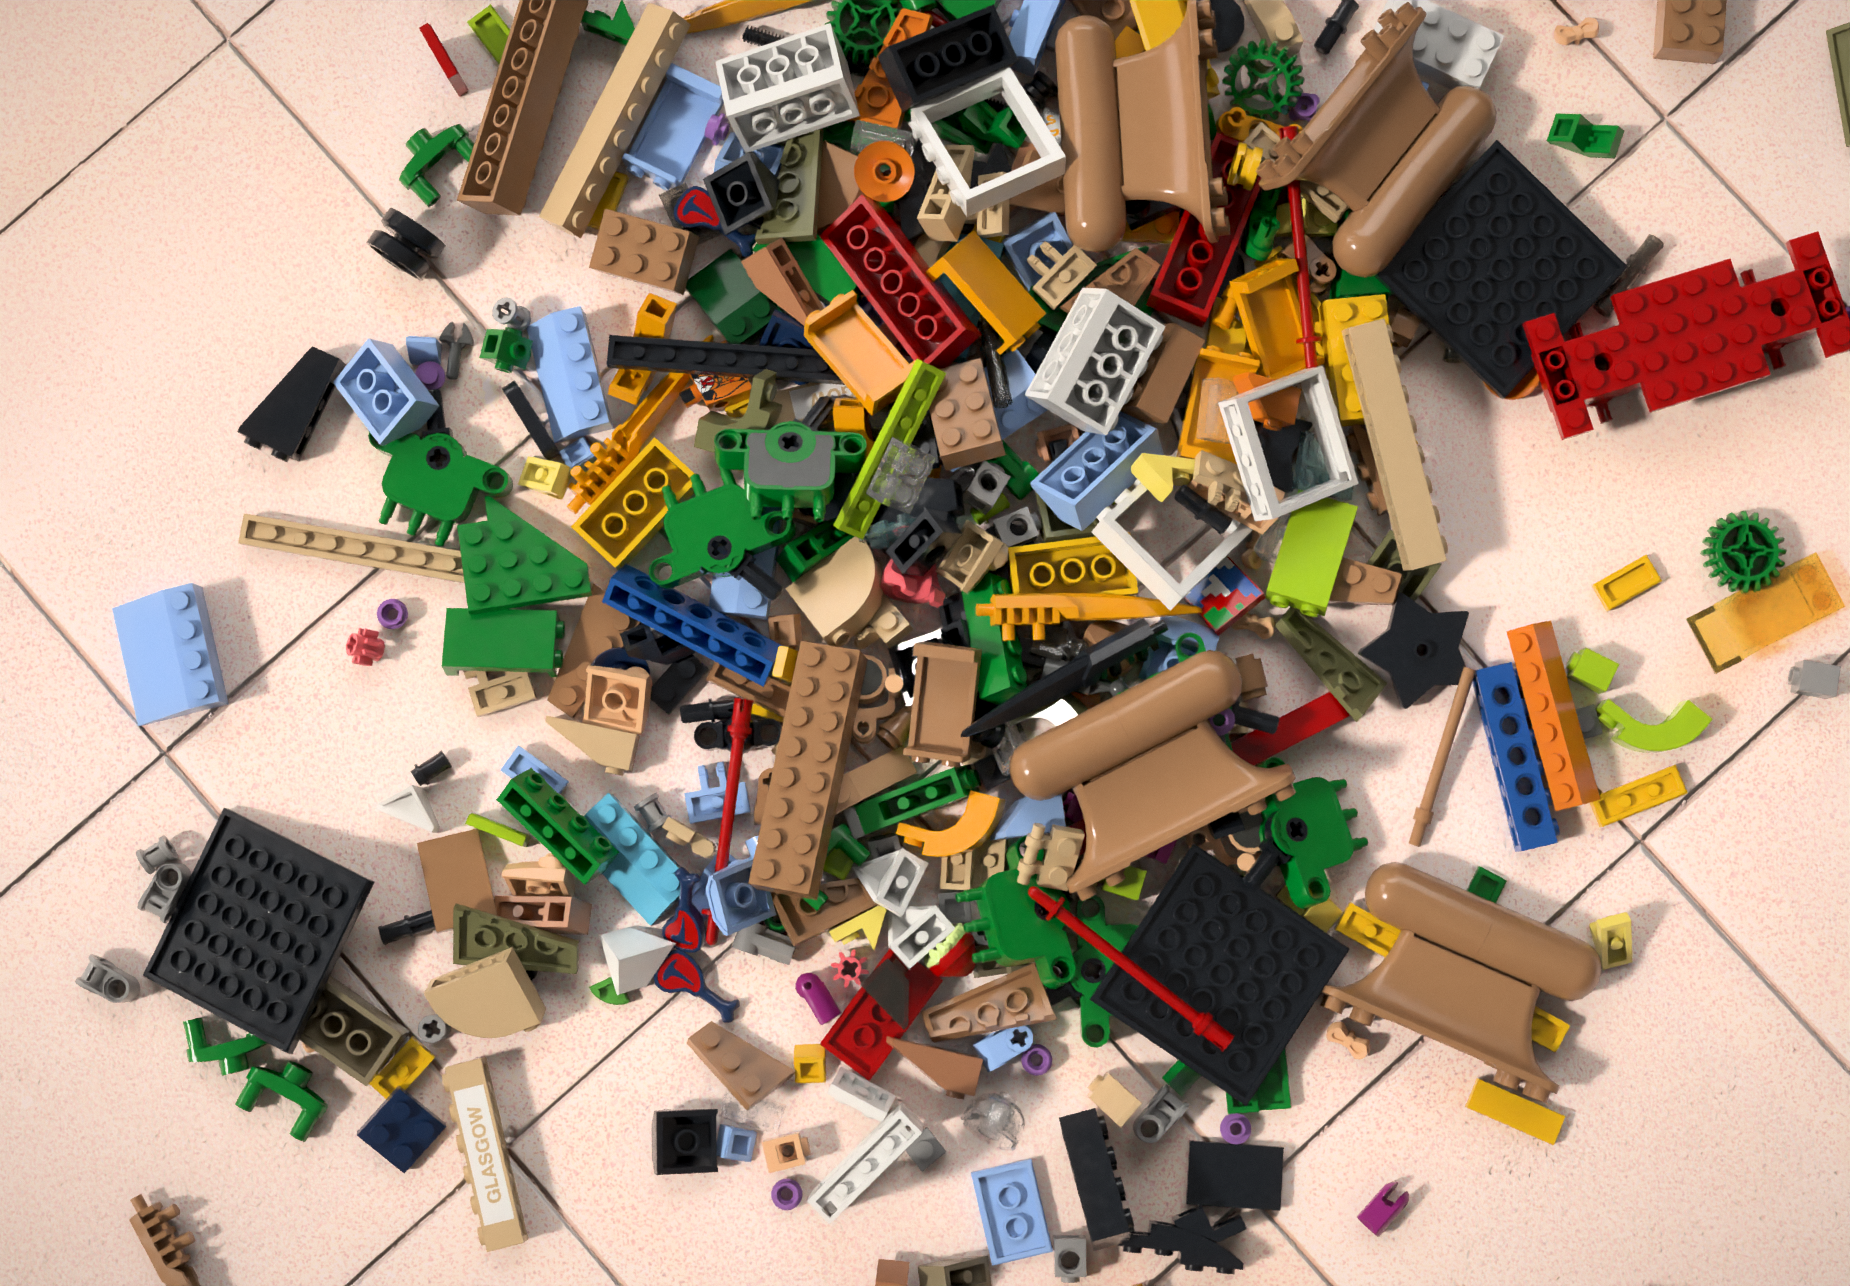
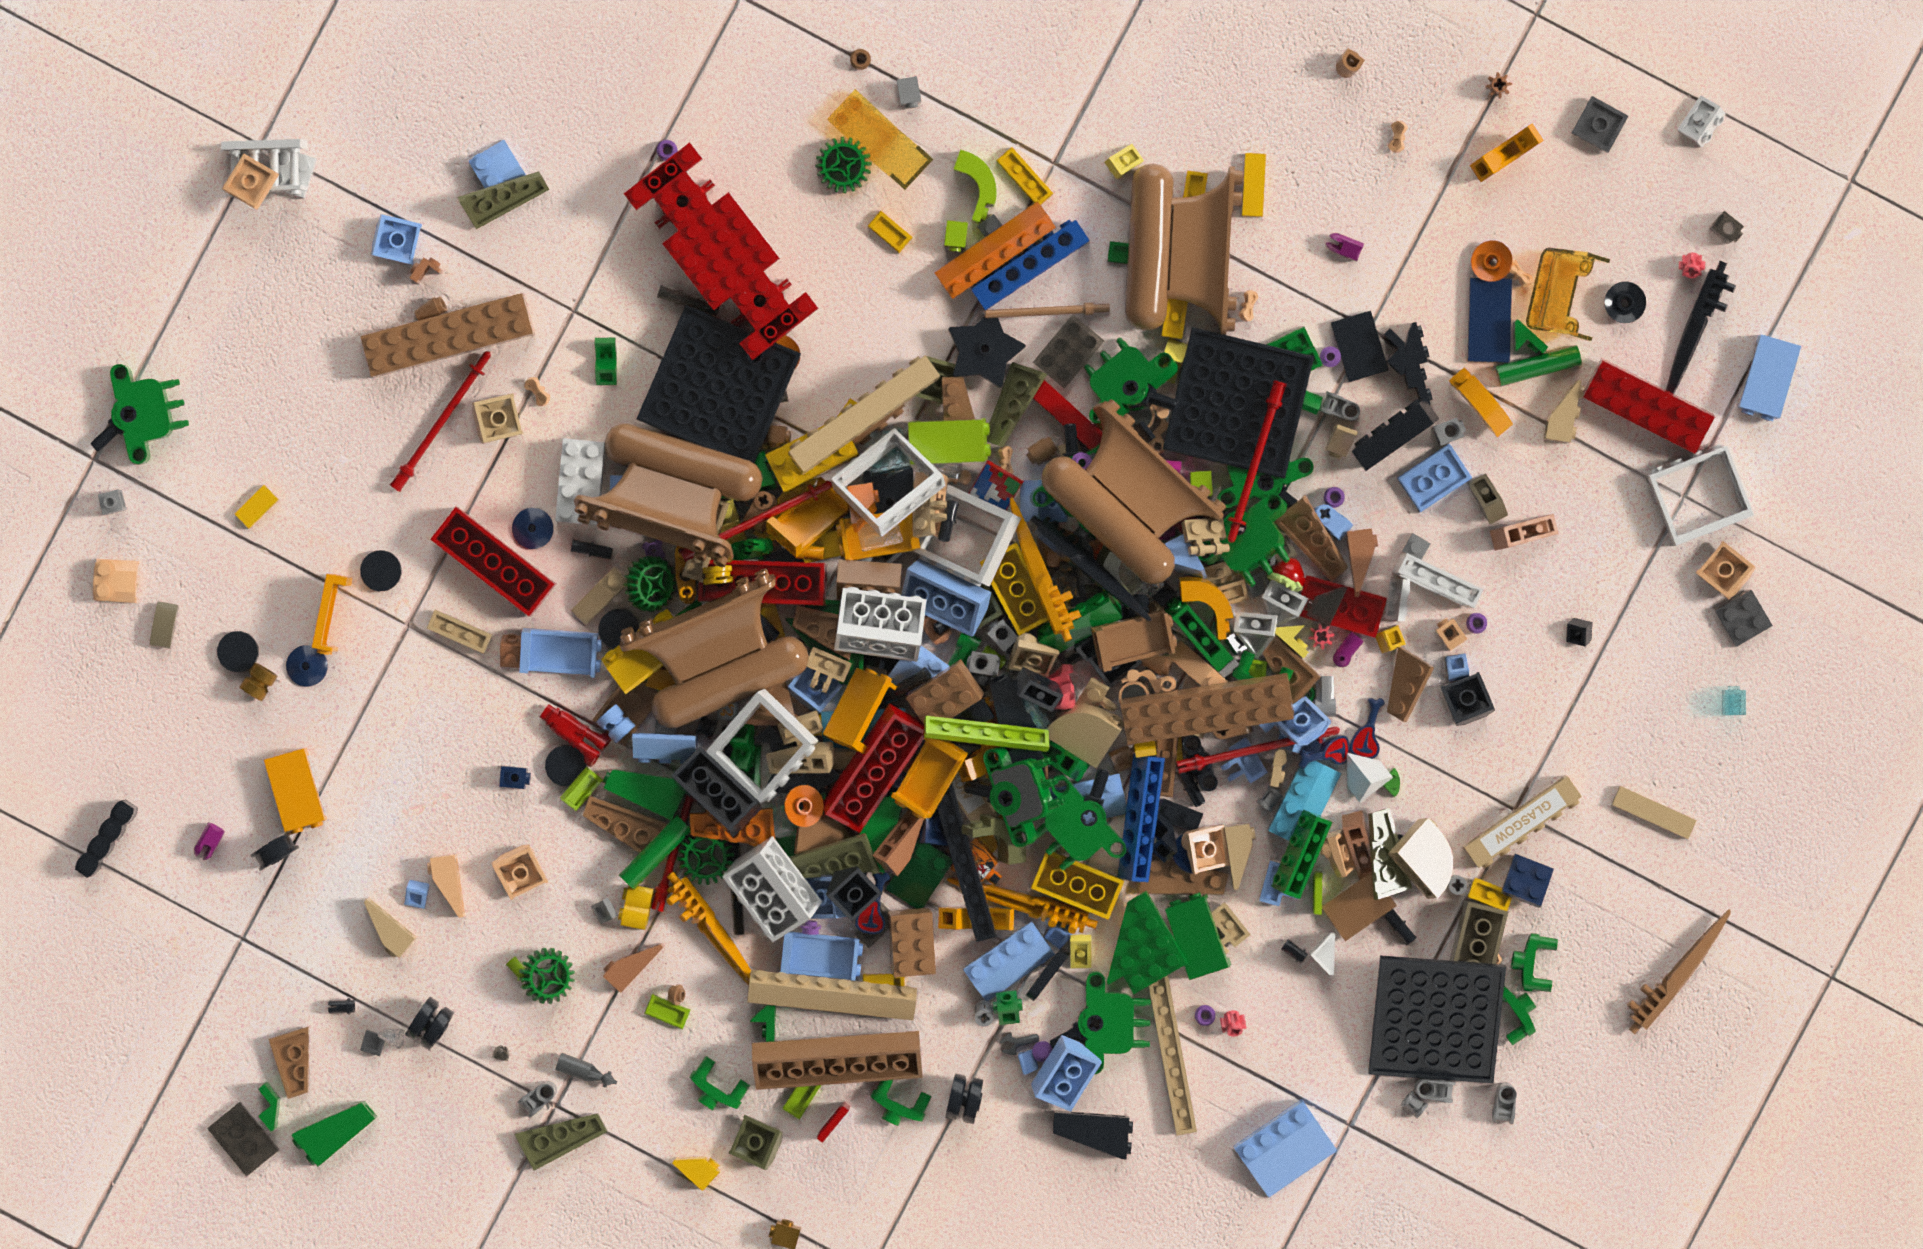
camera: 110 degrees left, 5 degrees up
(901, 475) = (1001, 719): clear brick -> none
(995, 1118) = (1380, 509): clear cylinder -> none
(1161, 472) = (935, 556): light yellow slope -> none
(1374, 765) = (1068, 351): none -> clear smoke plate

